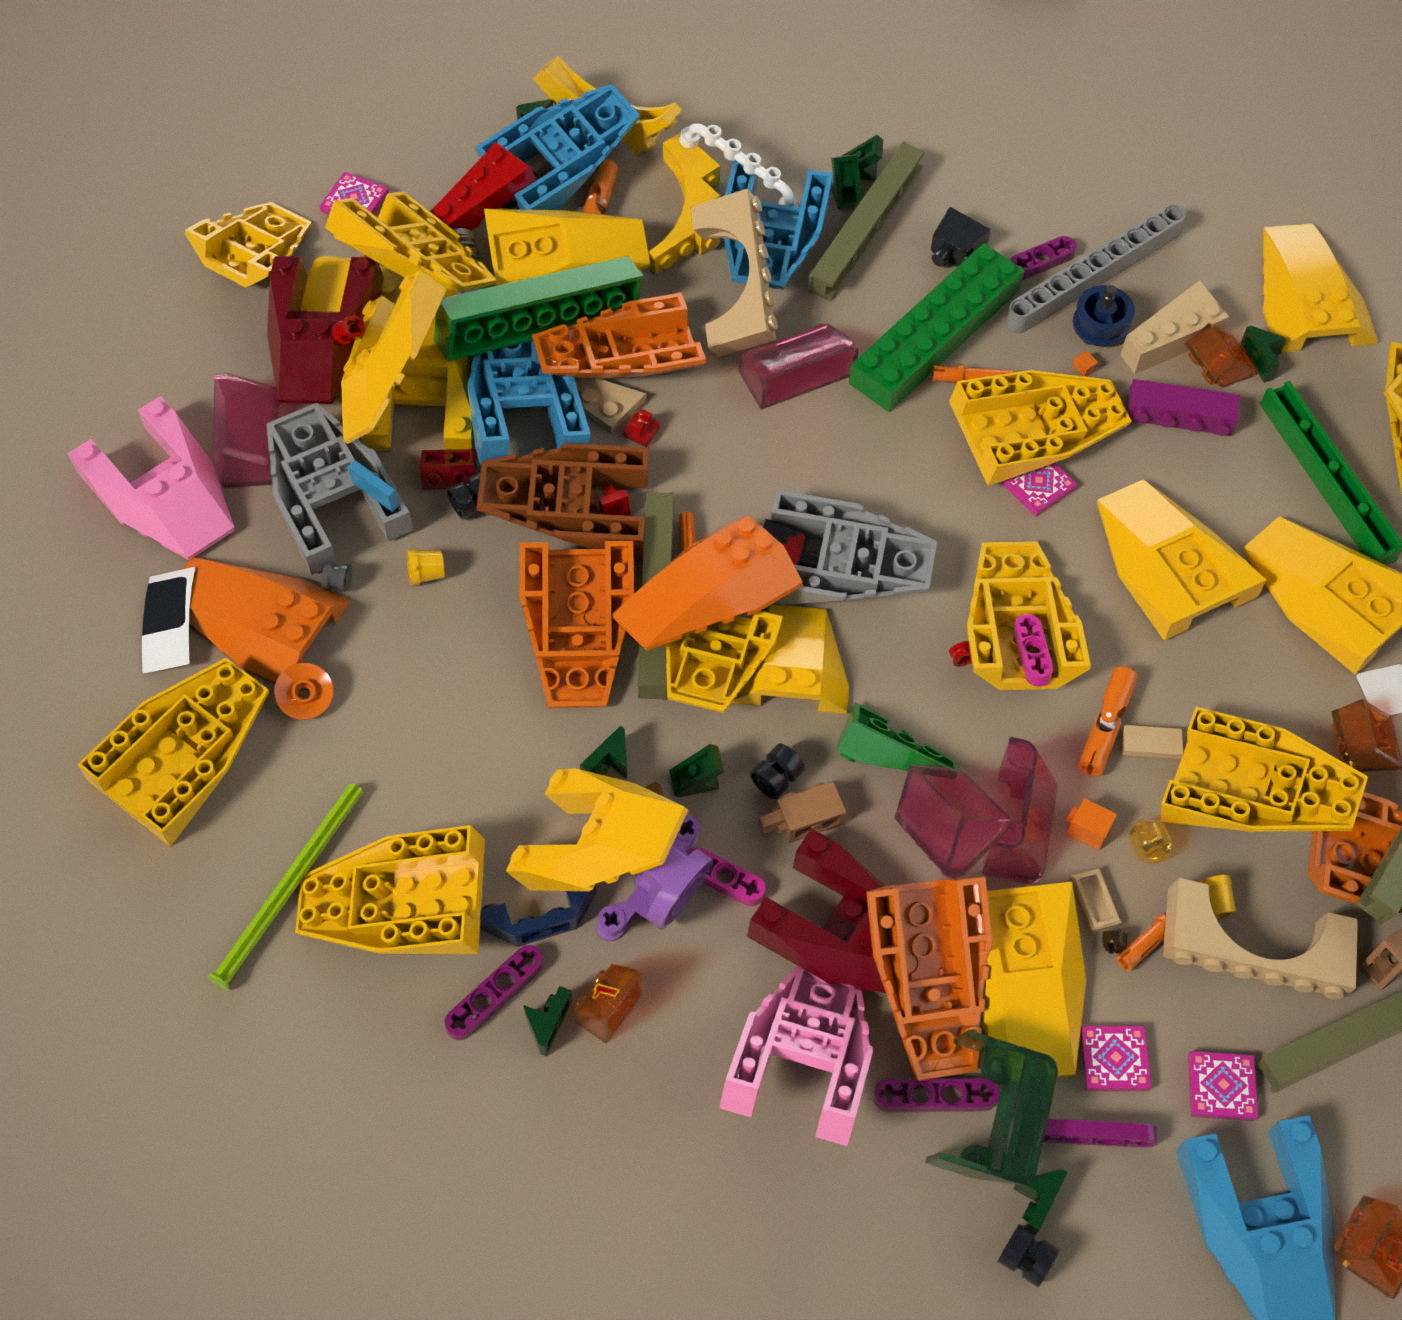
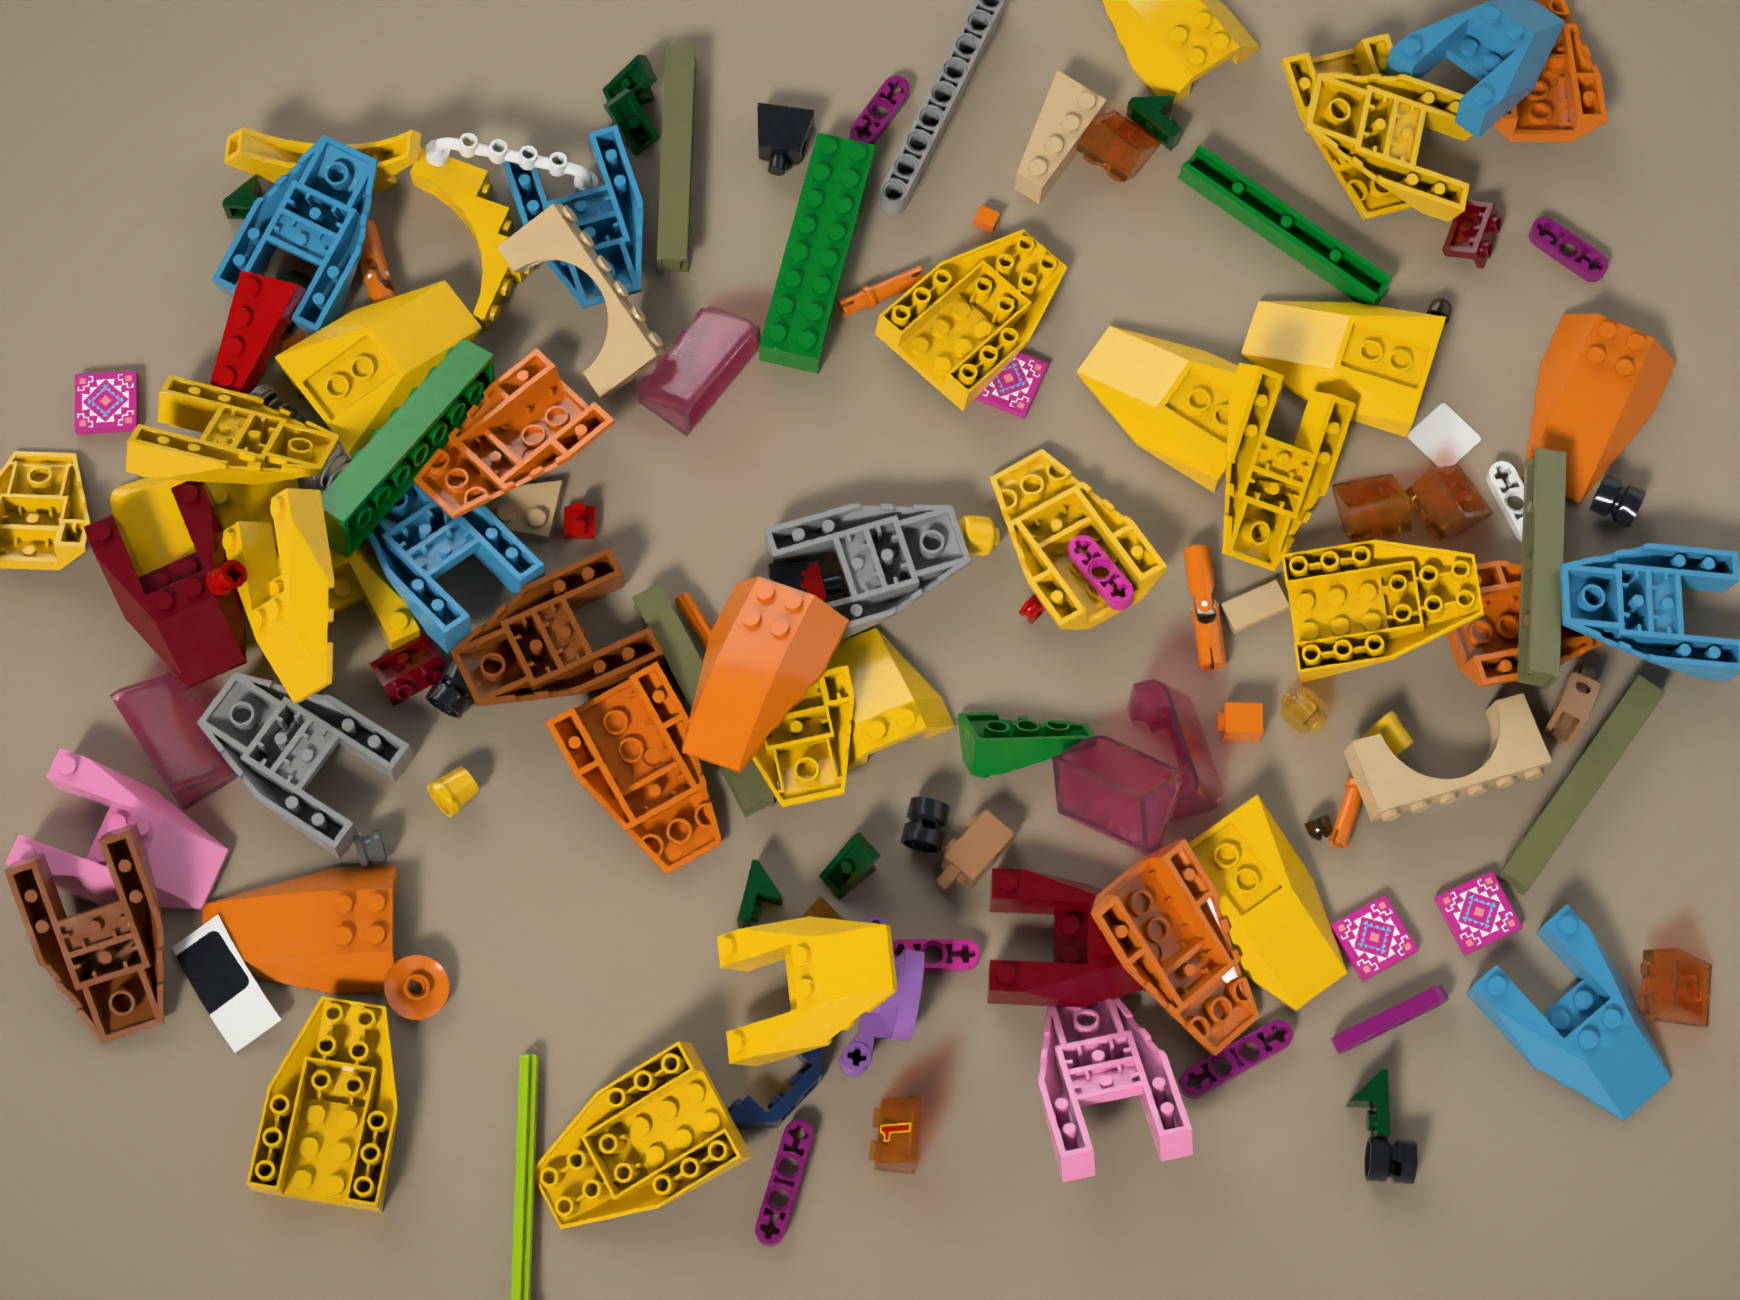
camera: 30 degrees left, 10 degrees up
(96, 548) = (105, 956): none -> dark orange wedge
(373, 485) = (359, 737): dark azure tile -> none
(546, 1025) = (850, 1191): dark green slope -> none
(614, 502) = (603, 623): red tile -> none
(947, 578) = (979, 534): none -> yellow head
(1020, 1116) = (1321, 1042): clear green windscreen -> none
(1095, 901) = (1281, 795): tan tile -> none
(1103, 315) = (979, 156): dark blue wheel -> none
(1183, 407) = (1108, 224): magenta brick -> none
(1213, 645) = (1270, 481): none -> yellow wedge
(1298, 712) = (1373, 508): none -> clear orange slope

